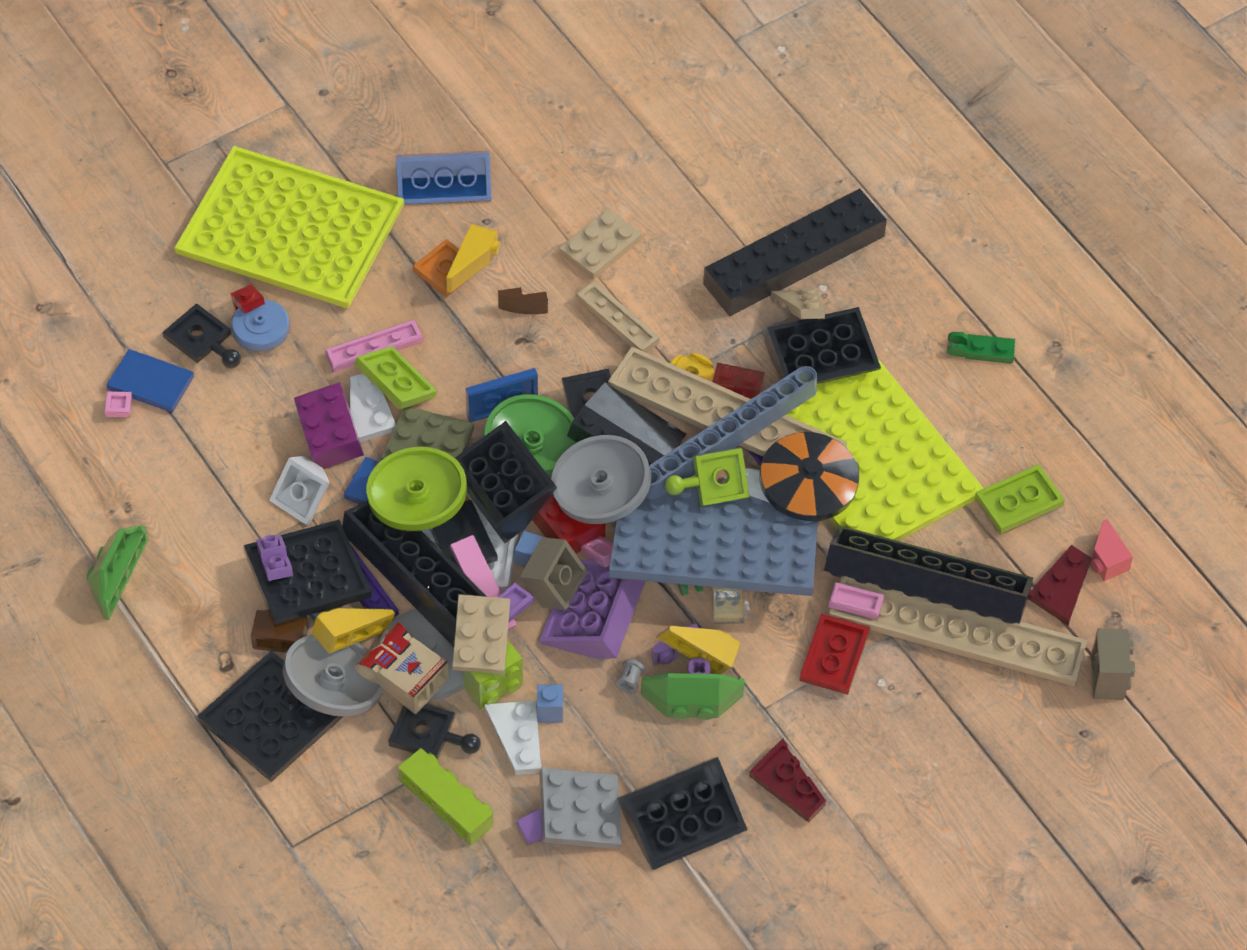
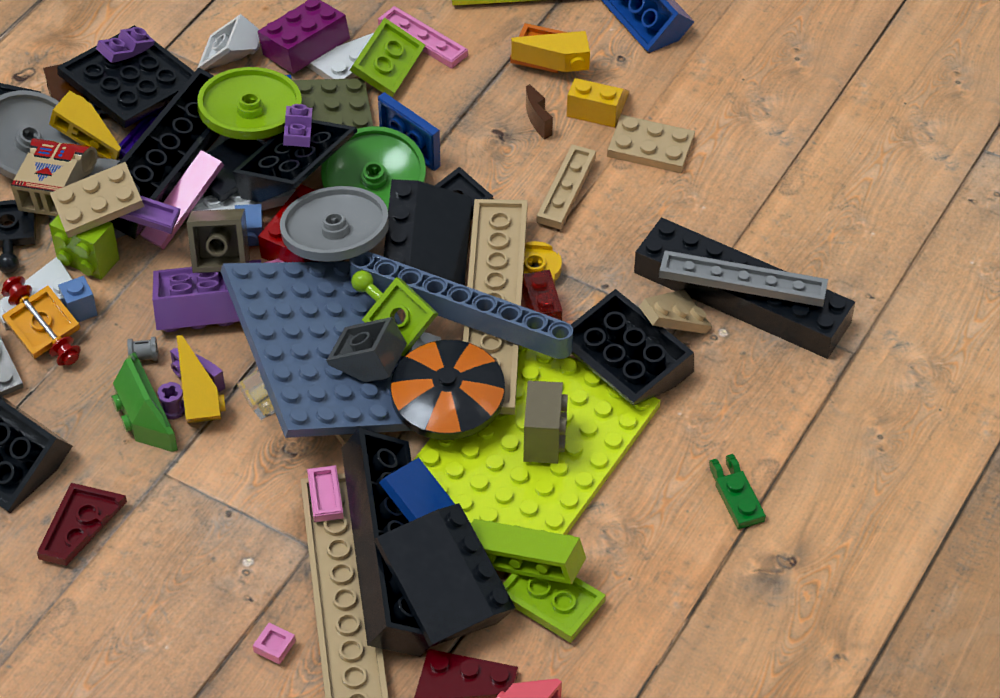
camera: 65 degrees right, 5 degrees down
(474, 460) = (297, 125): none -> medium lavender slope
(533, 256) = (595, 102): none -> yellow slope
(563, 736) = (41, 321): none -> light orange plate
(746, 510) = (368, 350): none -> dark grey slope
(808, 242) = (743, 278): none -> light grey plate
(834, 654) = (255, 504): red plate -> none
(877, 427) = (544, 422): none -> dark tan brick
(909, 537) = (415, 490): none -> blue tile
(974, 689) = (274, 643): none -> bright pink plate
(982, 494) = (531, 551): none -> lime brick
(988, 545) = (445, 575): none -> black slope

